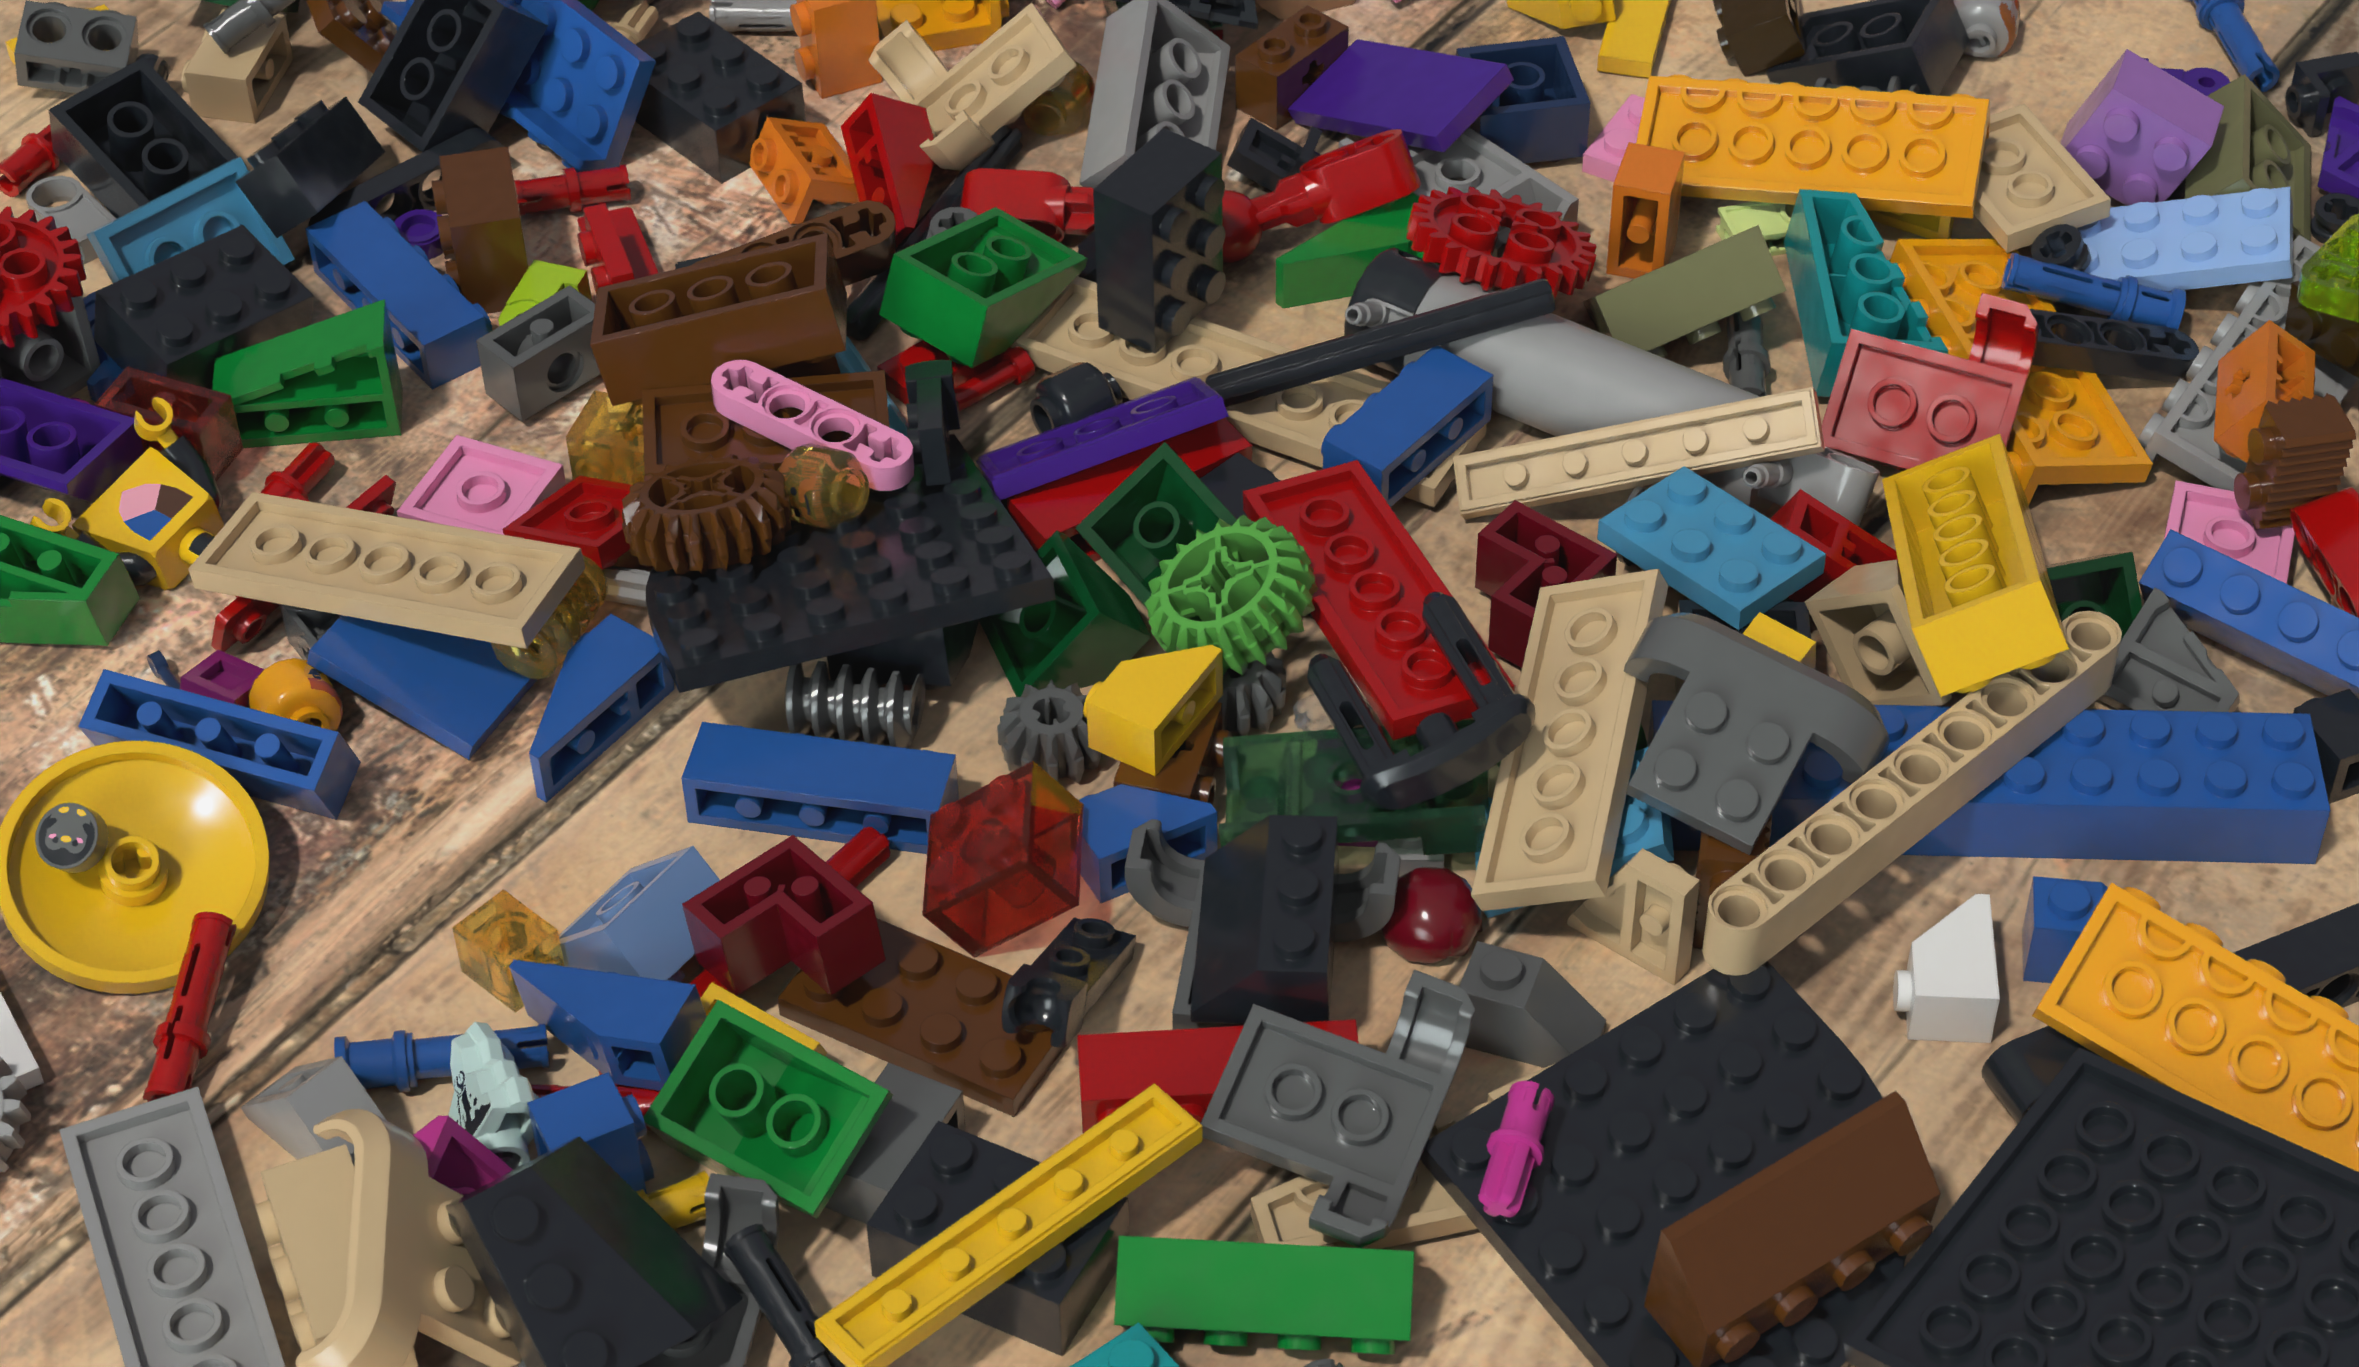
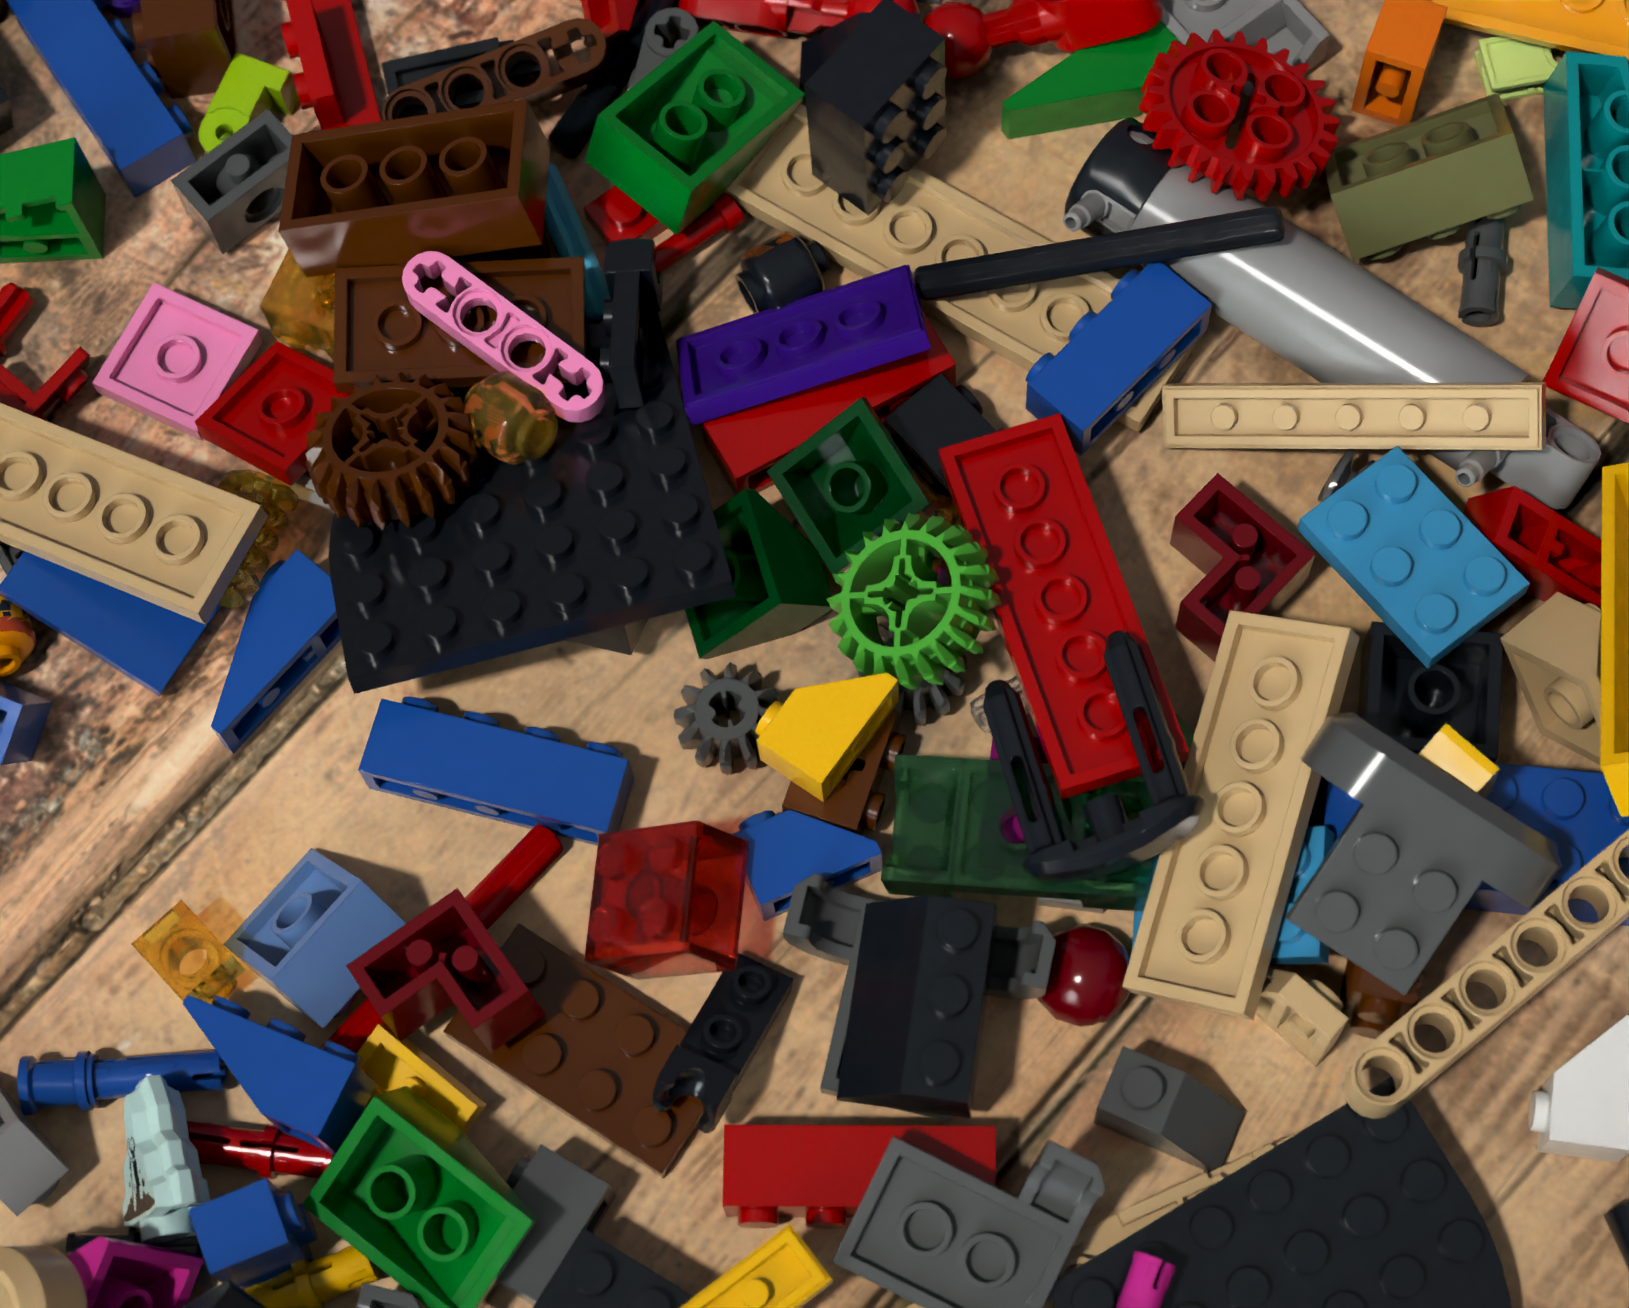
camera: 10 degrees right, 25 degrees up
(854, 708) = (541, 679): dark grey piece -> none

